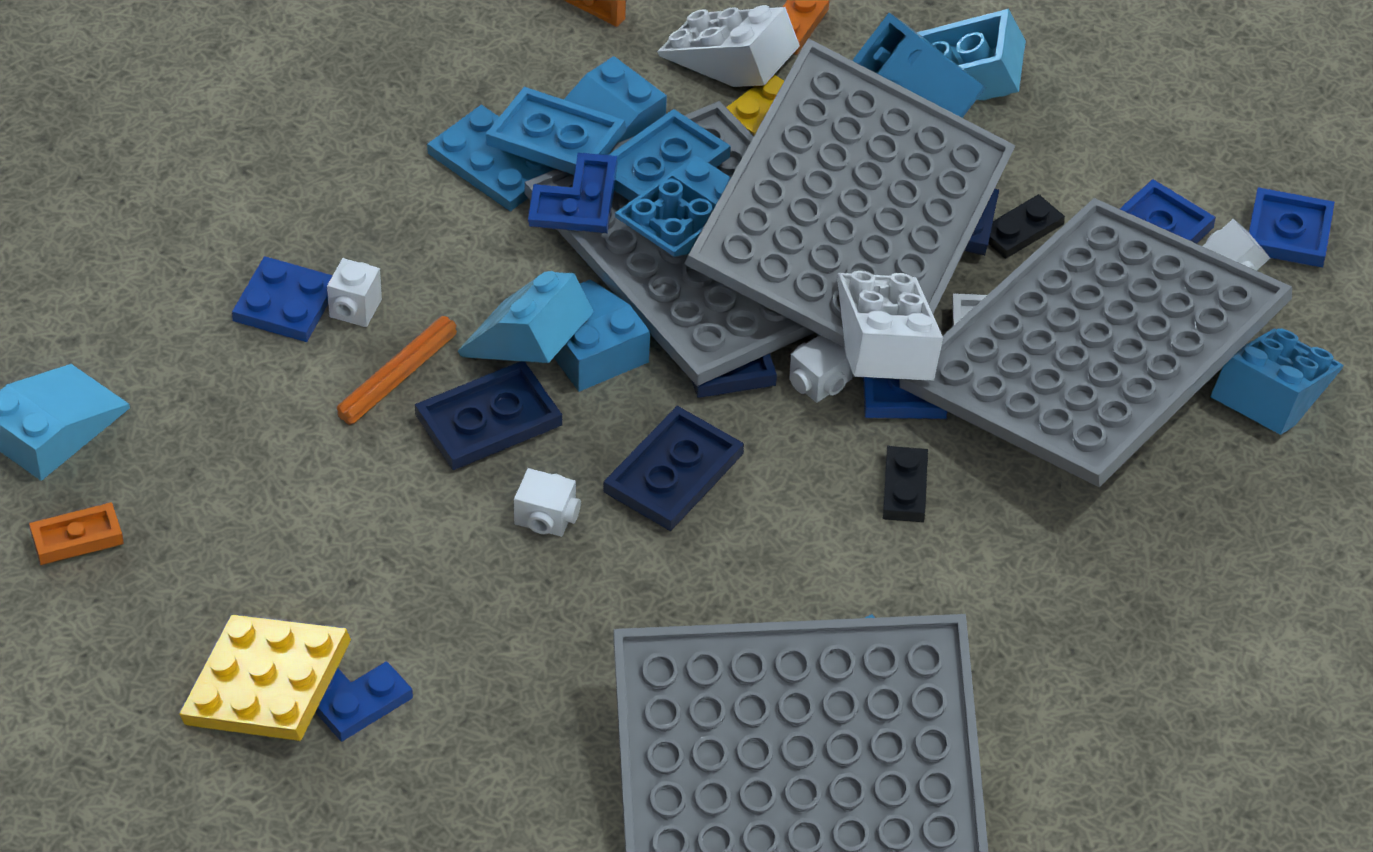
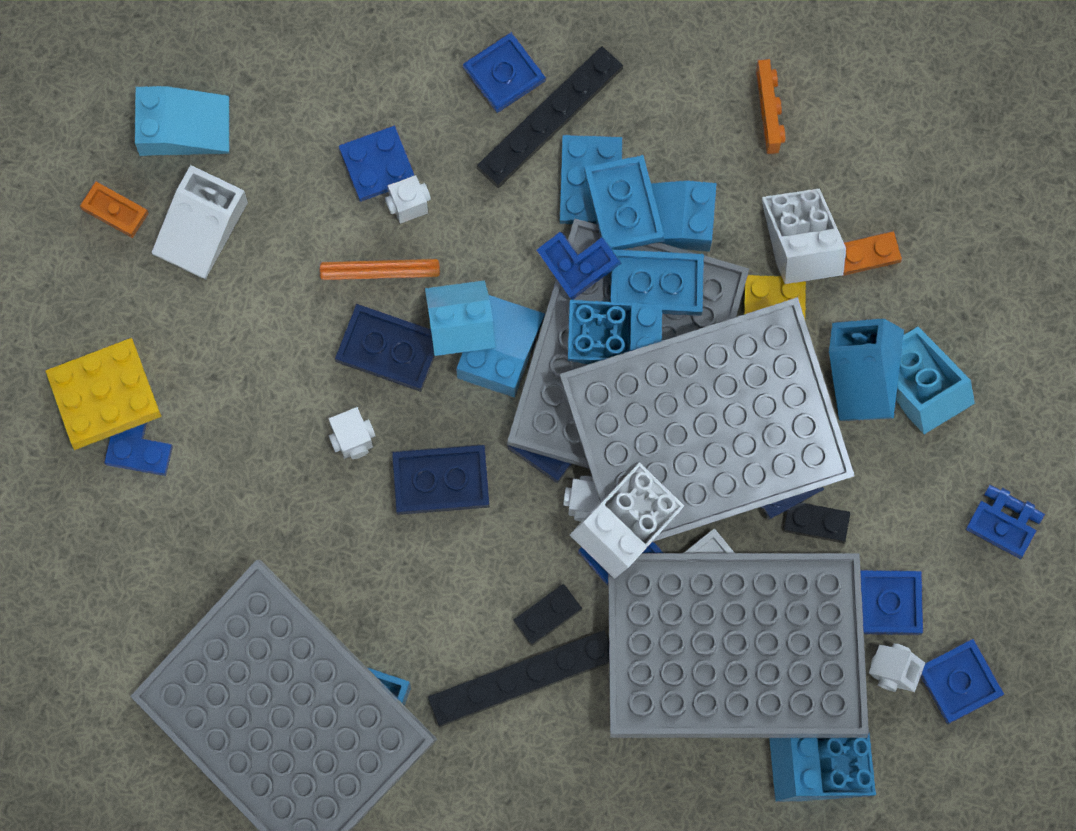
camera: 50 degrees right, 25 degrees up
(178, 466) = (199, 222): none -> white slope
(311, 143) = (504, 72): none -> blue plate
(396, 146) = (549, 117): none -> black plate
(957, 534) = (520, 679): none -> black plate
(1162, 98) = (1001, 529): none -> blue plate

